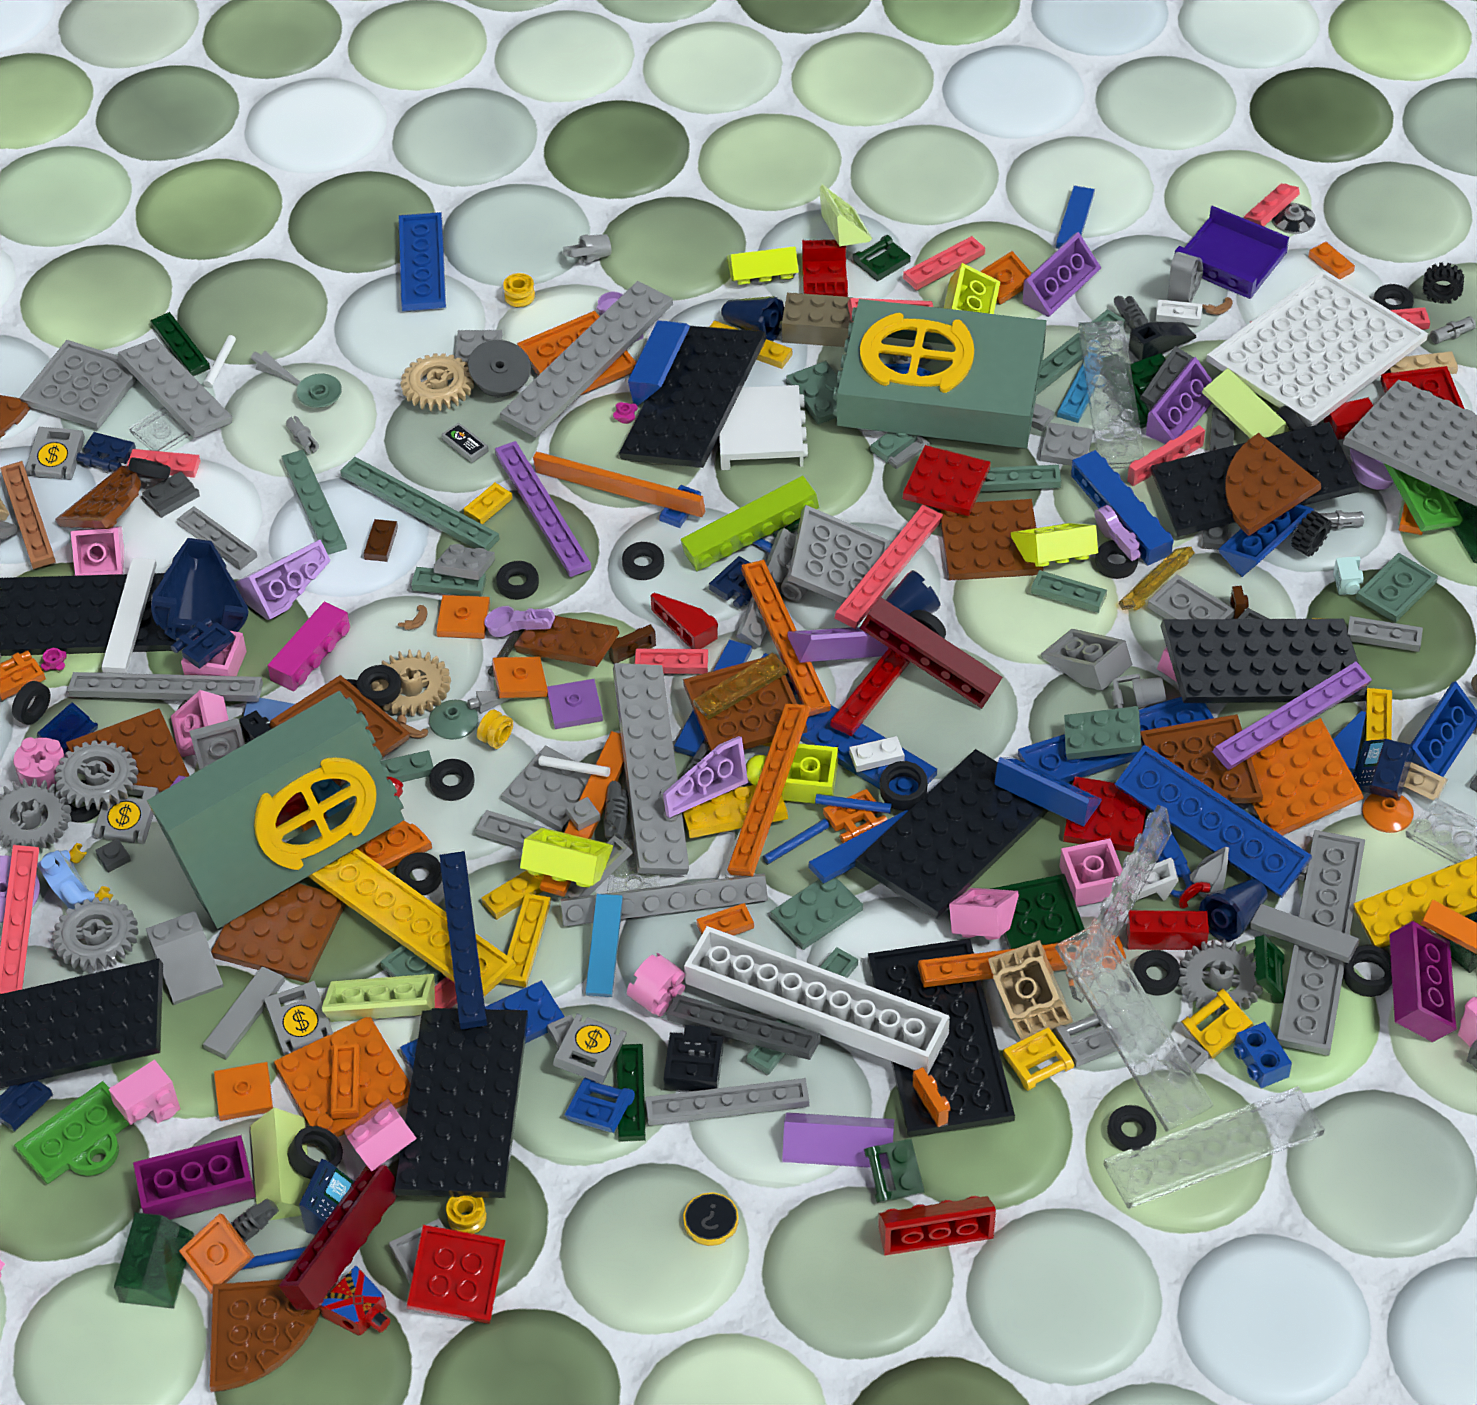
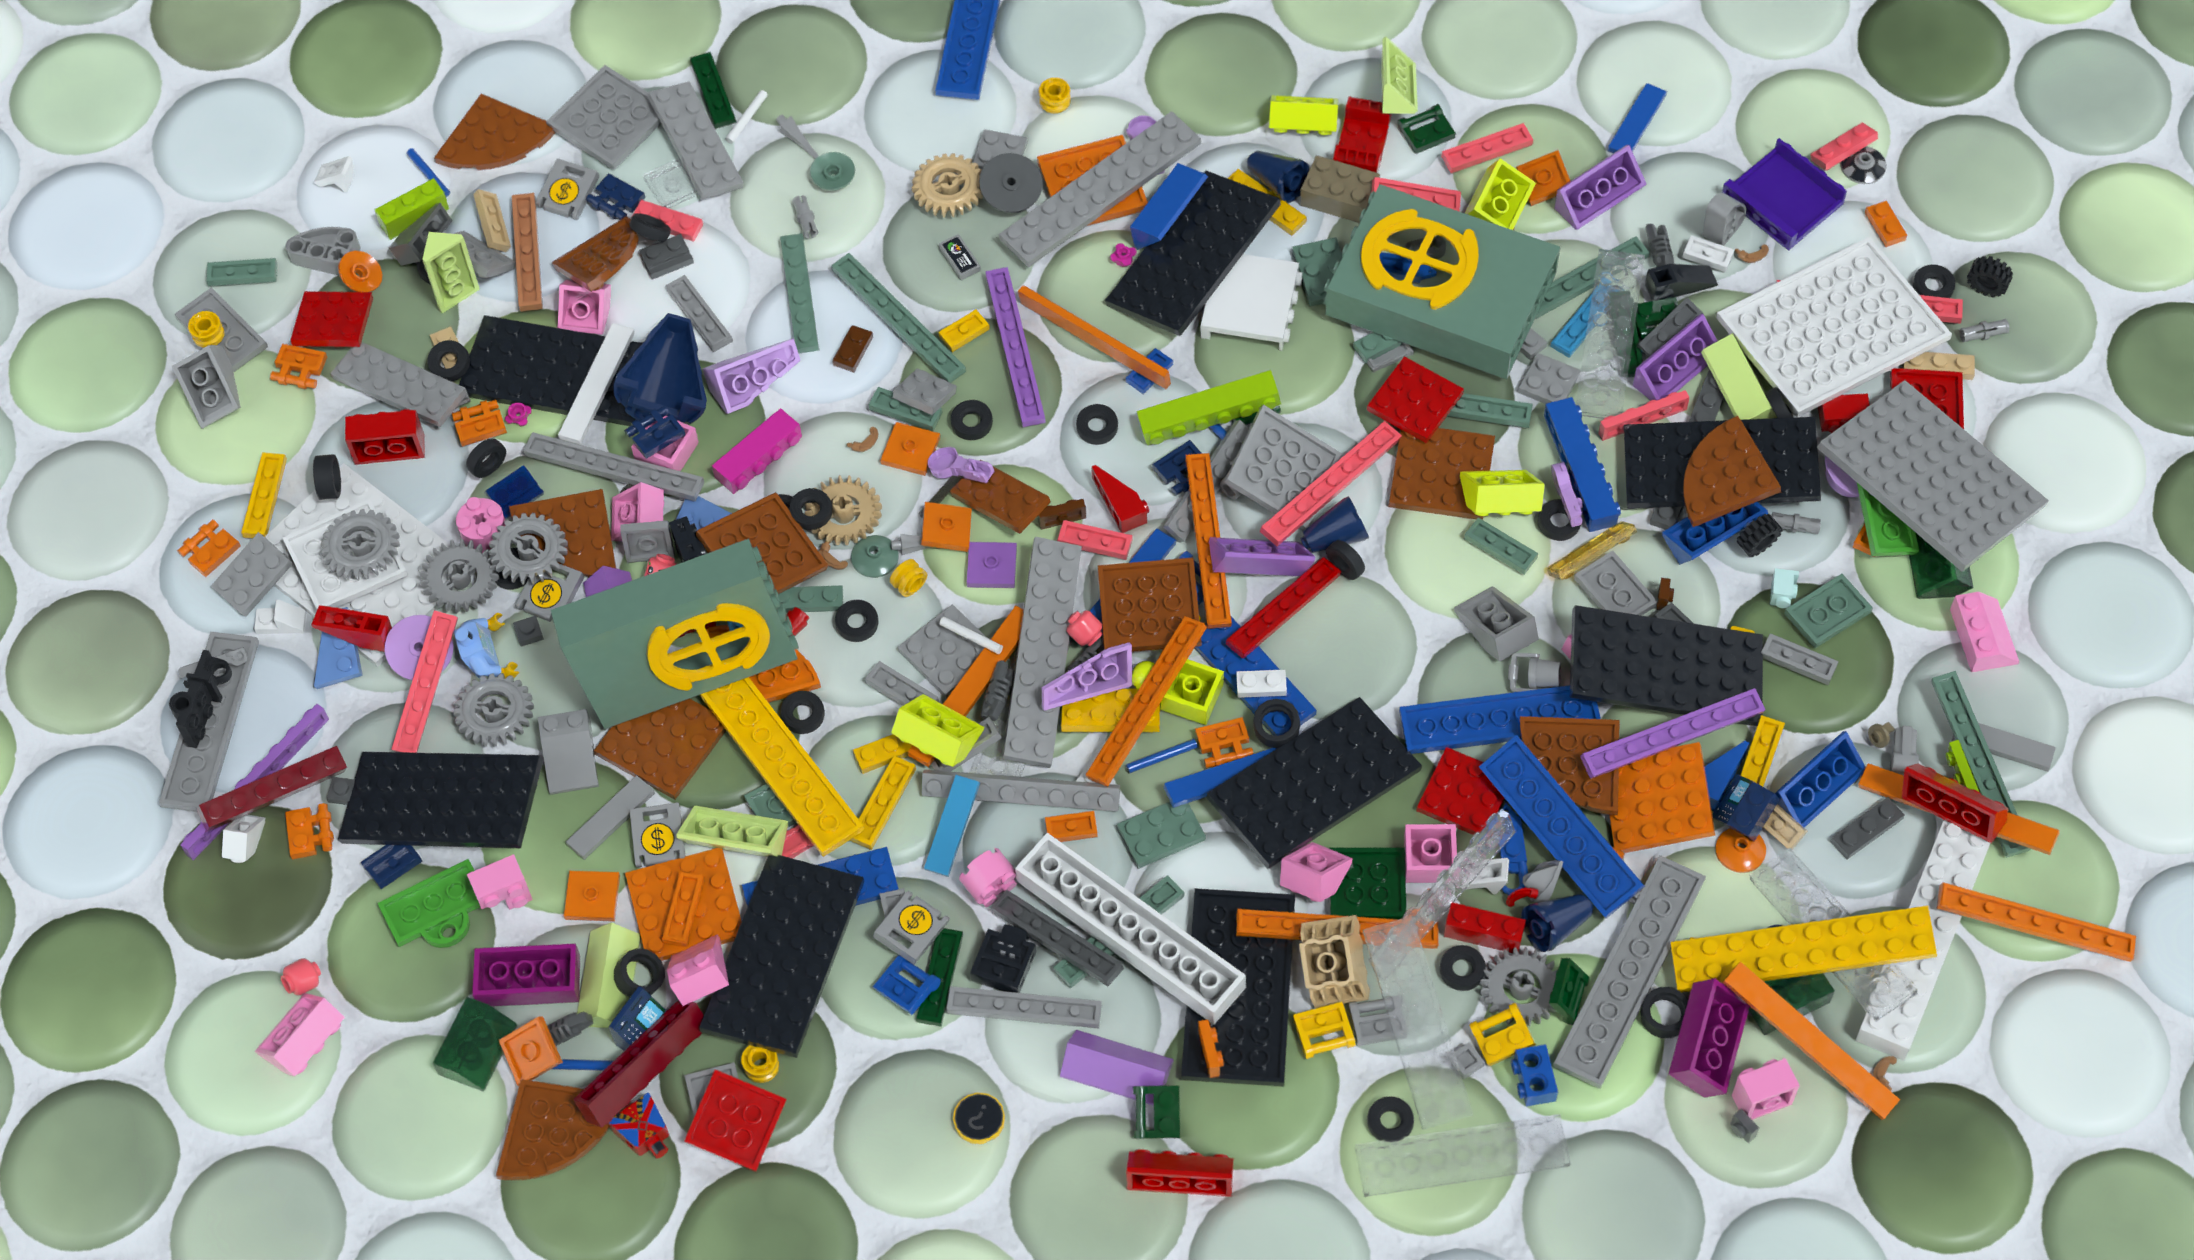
camera: 15 degrees right, 10 degrees up
(463, 940) = (821, 794): dark blue plate -> none
(583, 813) = (965, 687): light grey plate -> none
(590, 248) = (1138, 61): light grey piece -> none
(686, 737) = (1084, 628): none -> coral head
(740, 686) = (1148, 586): clear yellow plate -> none
(853, 803) = (1224, 731): blue bar -> none
(931, 652) = (1341, 589): dark red brick -> none
(1045, 790) = (1412, 757): blue slope -> none
(1102, 733) = (1484, 709): sand green plate -> none
(1304, 933) = (1613, 962): light grey tile -> none

